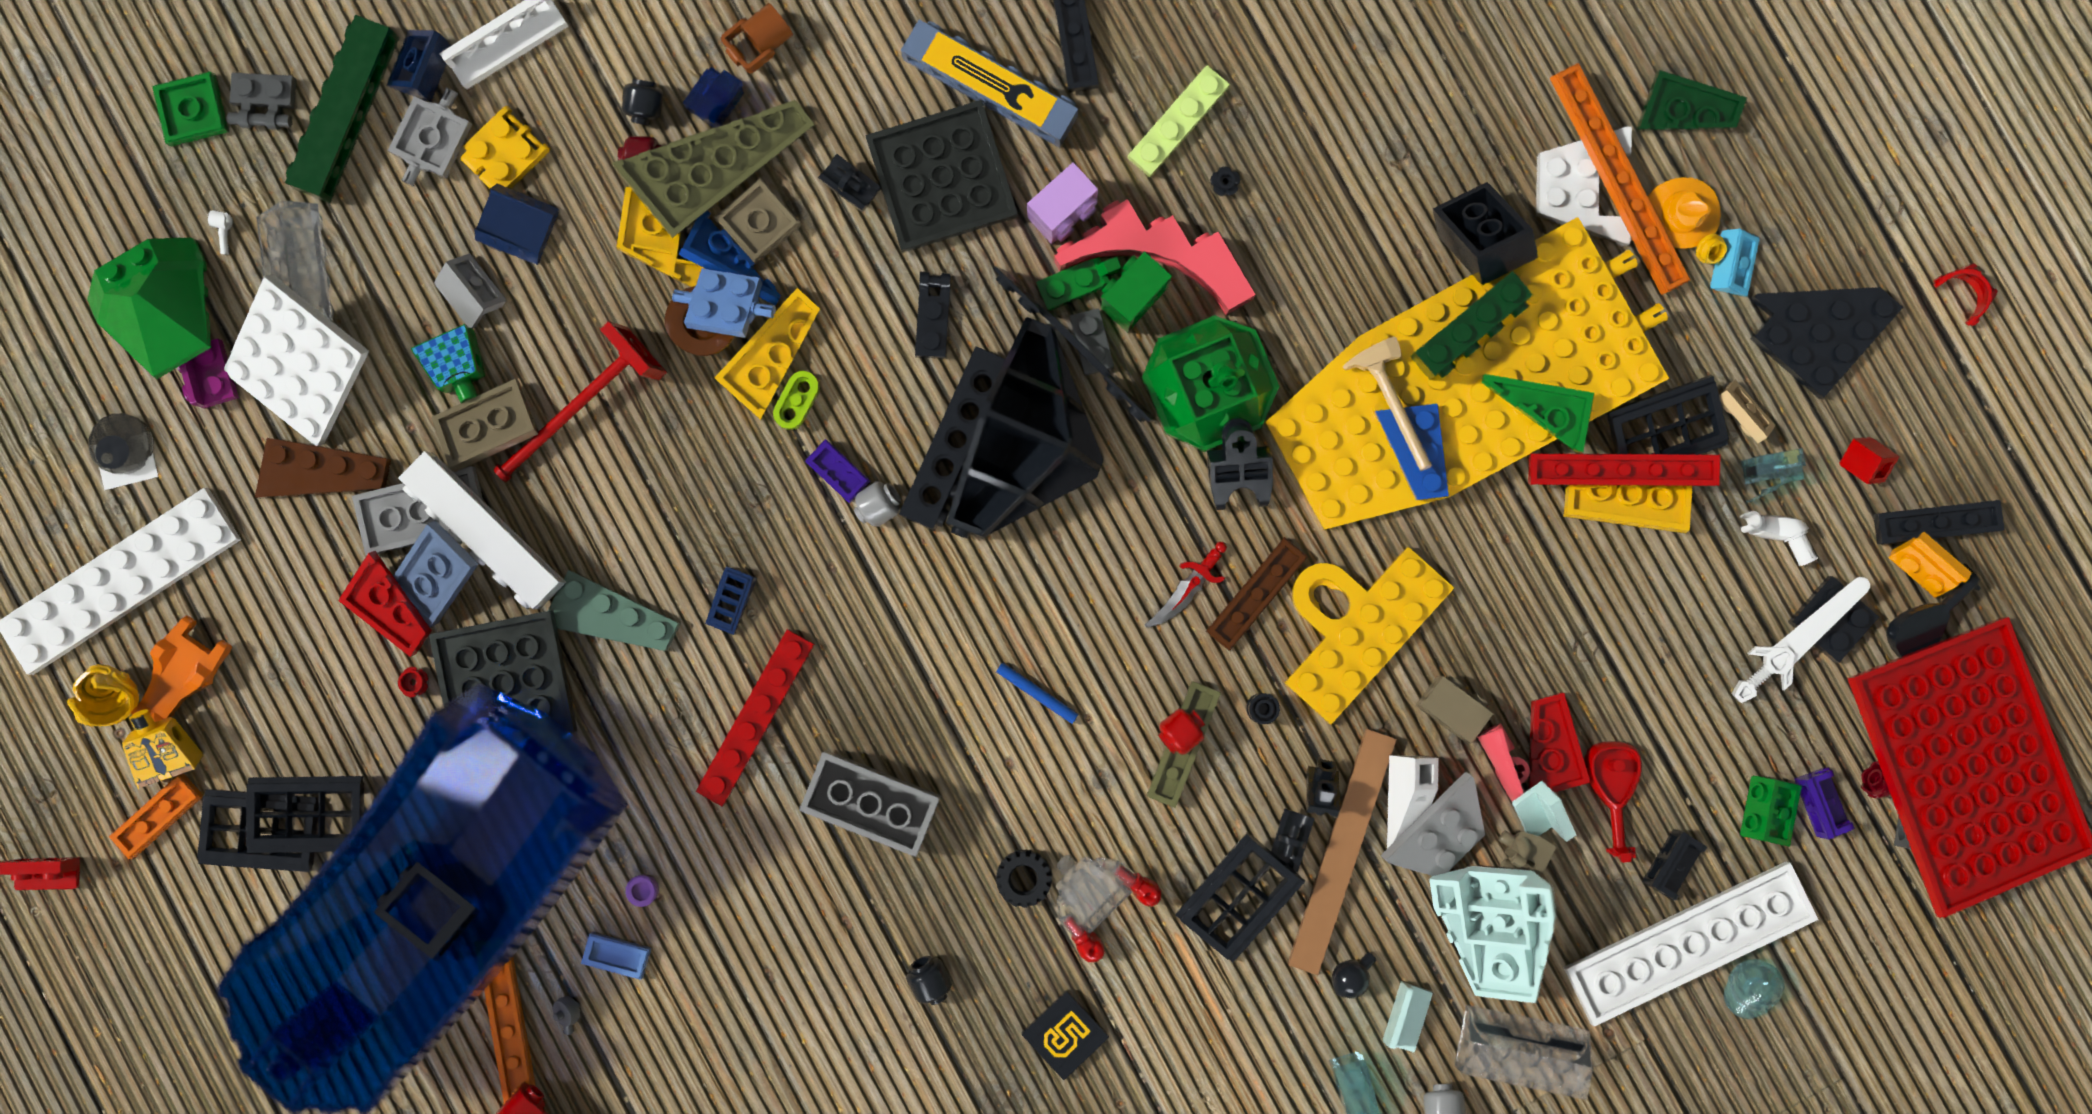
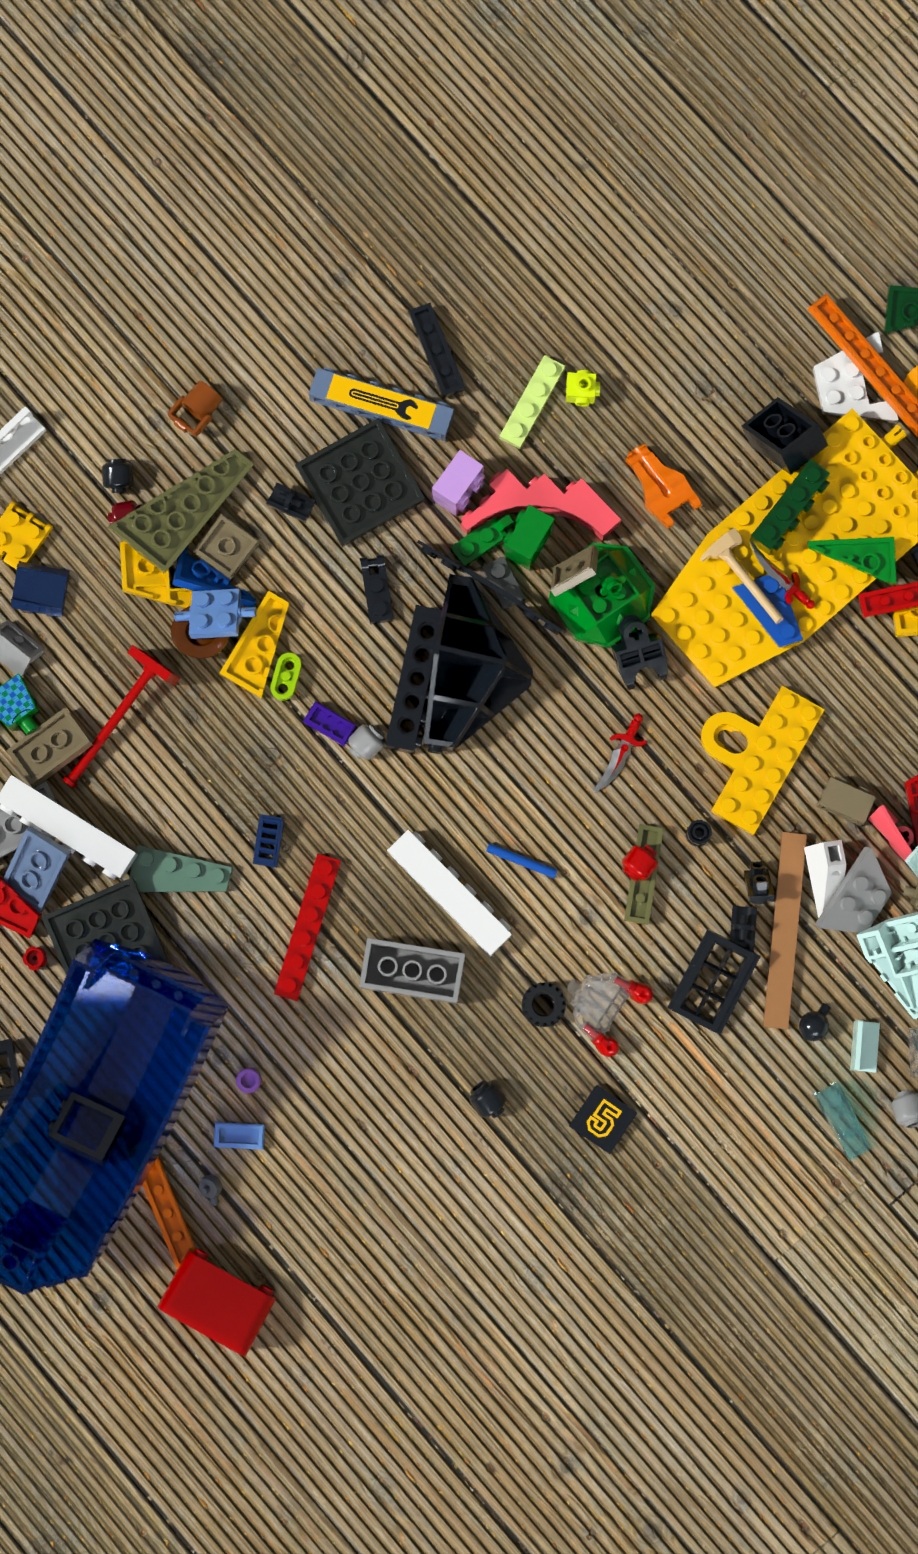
camera: 10 degrees left, 5 degrees down
(714, 96) = (172, 460): clear blue piece -> none
(938, 715) = (449, 893): none -> white brick
(1182, 348) = (574, 570): none -> dark tan plate
(1225, 189) = (574, 444): black plate -> none
(1244, 117) = (582, 388): none -> neon yellow brick
(1256, 594) = (674, 747): reddish brown tile -> none
(1316, 263) = (662, 486): none -> orange animal
(1450, 427) = (791, 586): none -> piece

